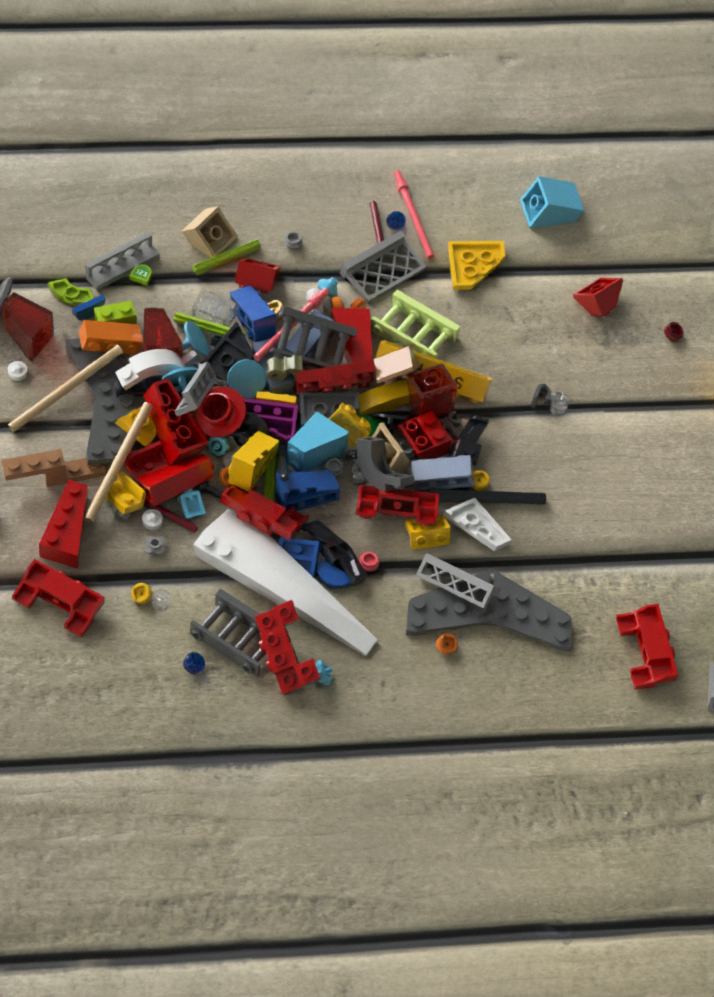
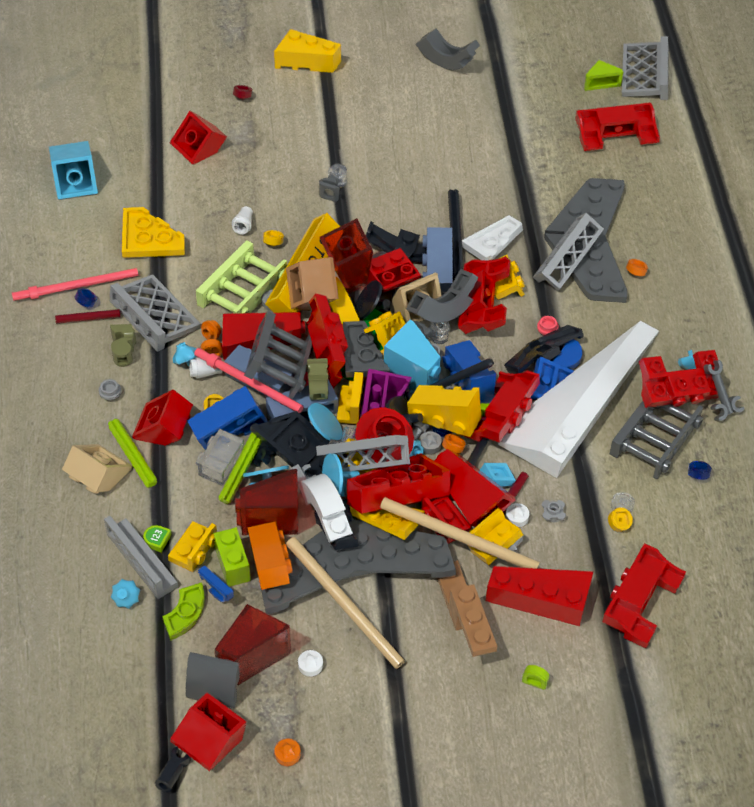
camera: 85 degrees left, 5 degrees down
(86, 253) = (125, 593): none -> medium azure piece
(126, 292) = (193, 546): none -> yellow bracket
(267, 692) = (727, 404): none -> dark grey bar
(335, 246) = (123, 344): none -> olive leg
(474, 353) = (273, 237): none -> yellow tile
(495, 330) = (243, 220): none -> white cone

